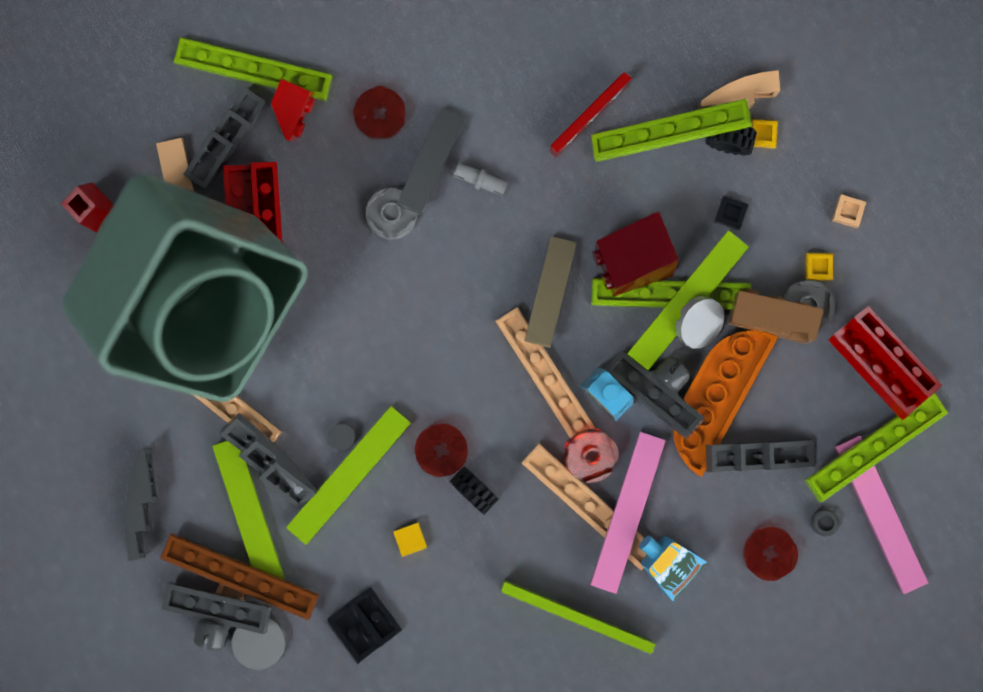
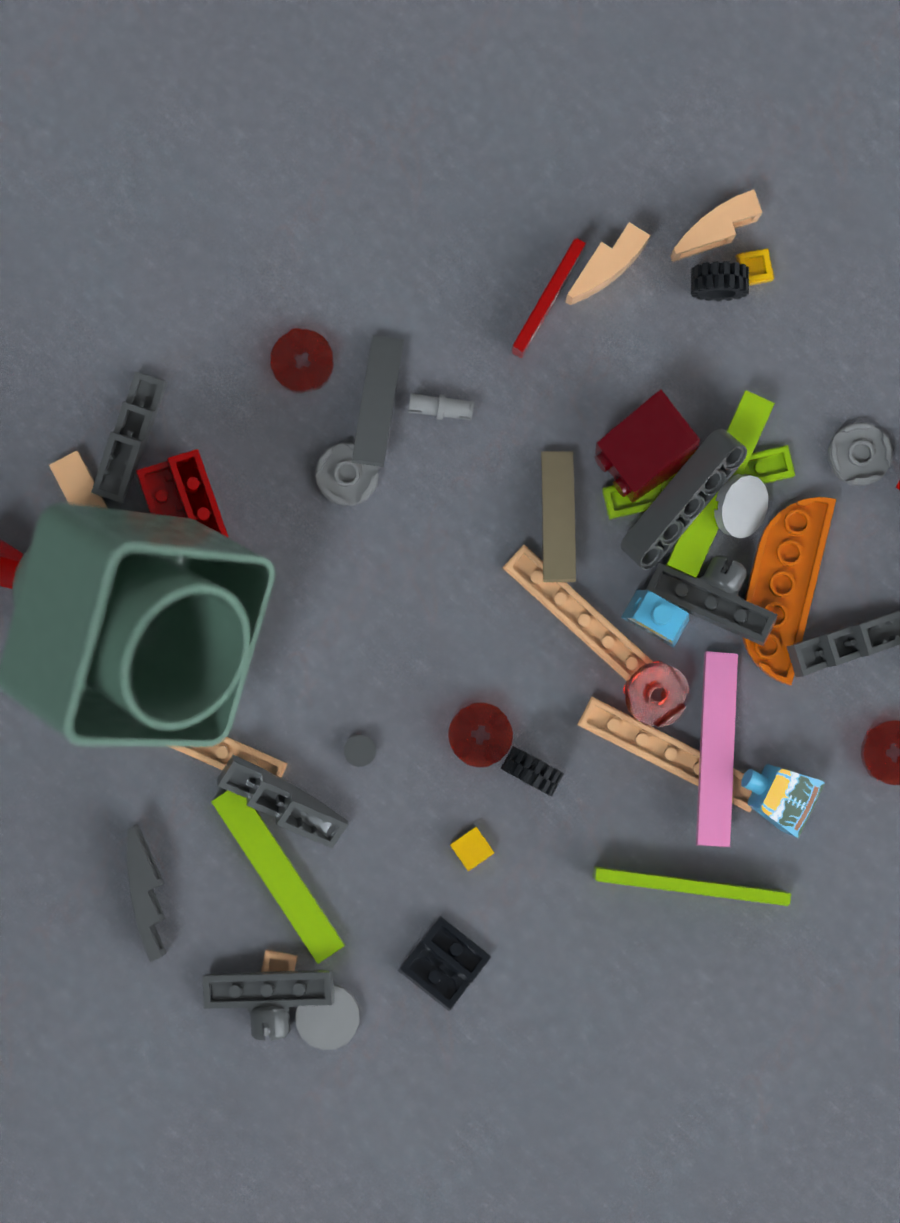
camera: 20 degrees left, 0 degrees up
(240, 576) = (285, 945): dark orange tile -> none
(249, 67) = (139, 348): lime tile -> none
(290, 107) = (196, 380): red slope -> none
(348, 475) = (379, 793): lime tile -> none
(645, 100) = (608, 263): none -> light nougat slope
(654, 304) = (683, 499): none -> dark grey beam
(671, 130) = (649, 291): lime tile -> none
(731, 213) = (742, 369): black tile -> none
(774, 315) = (828, 475): medium nougat wedge -> none
(819, 266) = (860, 405): yellow tile -> none
(848, 211) = (877, 331): light nougat tile -> none

